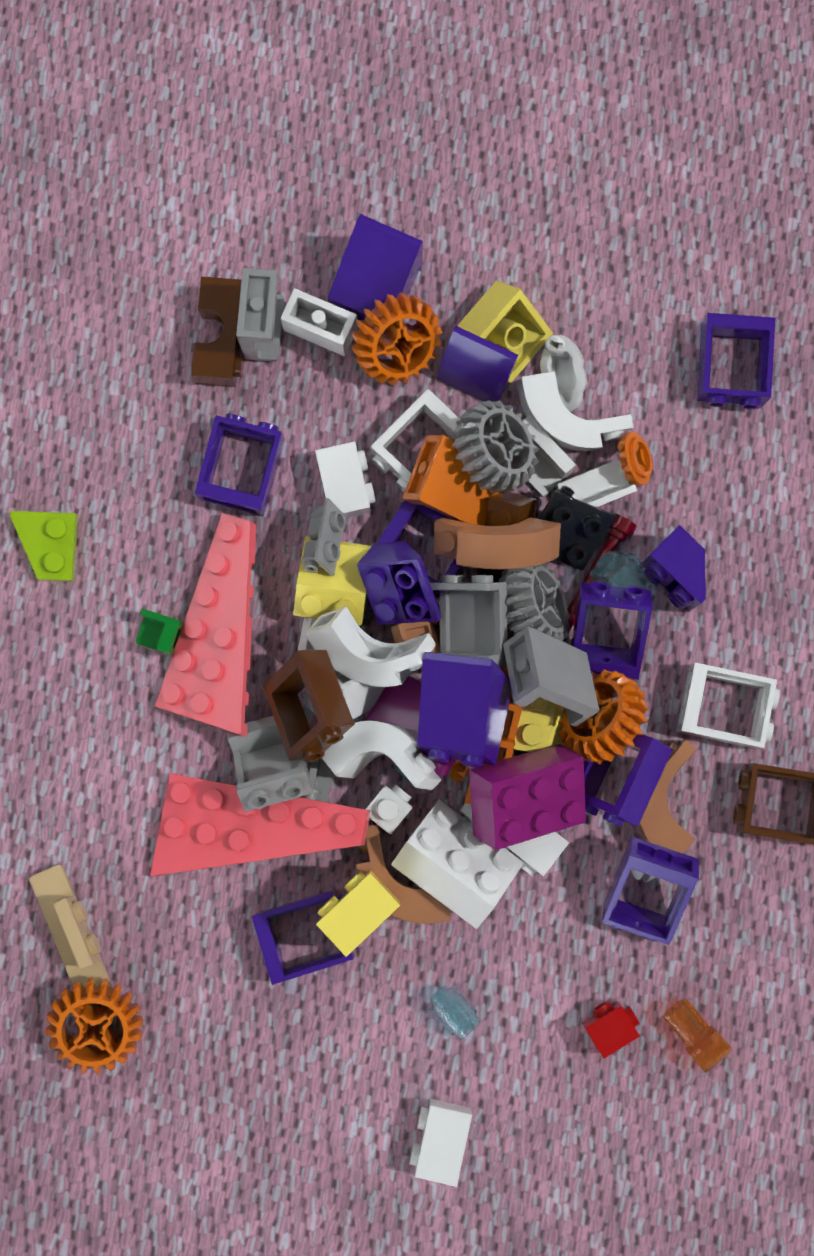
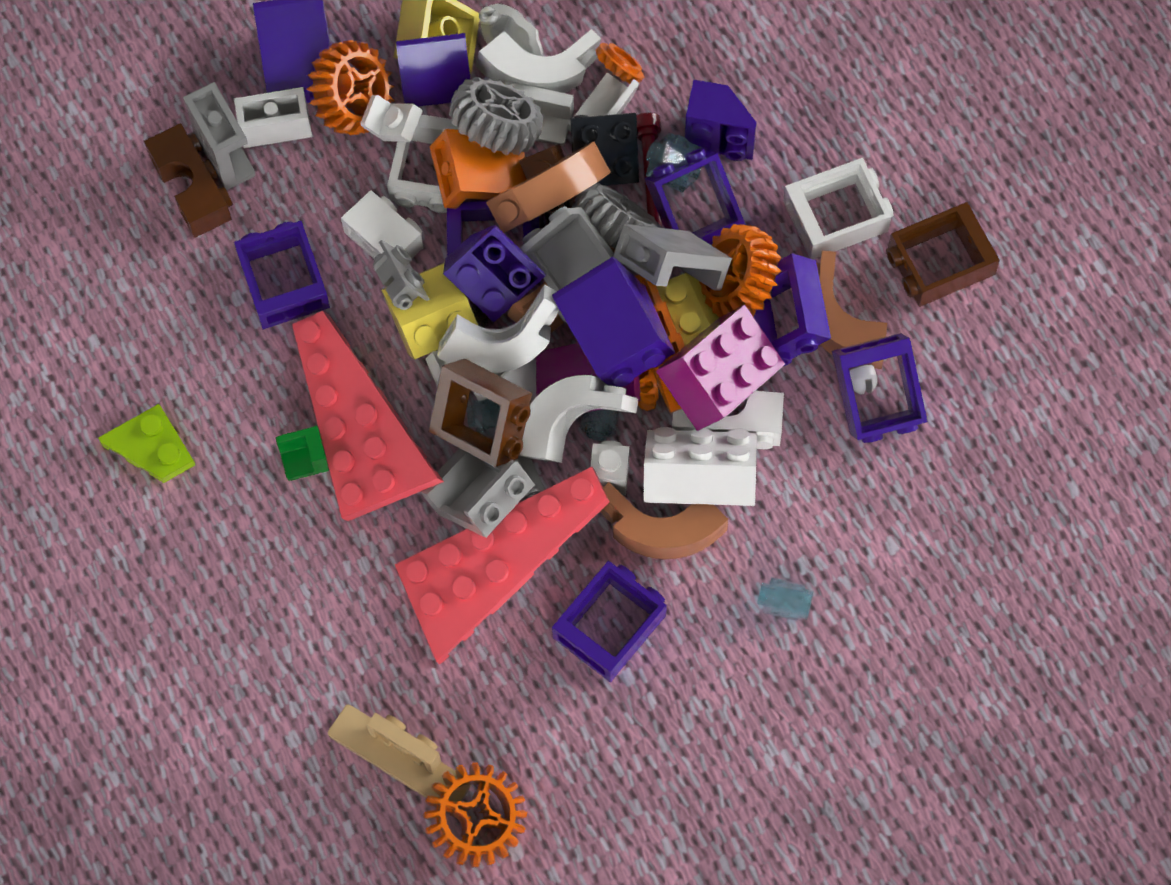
camera: 35 degrees left, 15 degrees down
(357, 913) = (641, 547): light yellow brick -> none
(410, 390) = (390, 120): none -> white bracket
(442, 1142) = (852, 713): white brick -> none
(611, 1027) = (928, 524): red brick -> none
(701, 1041) = (1016, 487): clear orange piece -> none

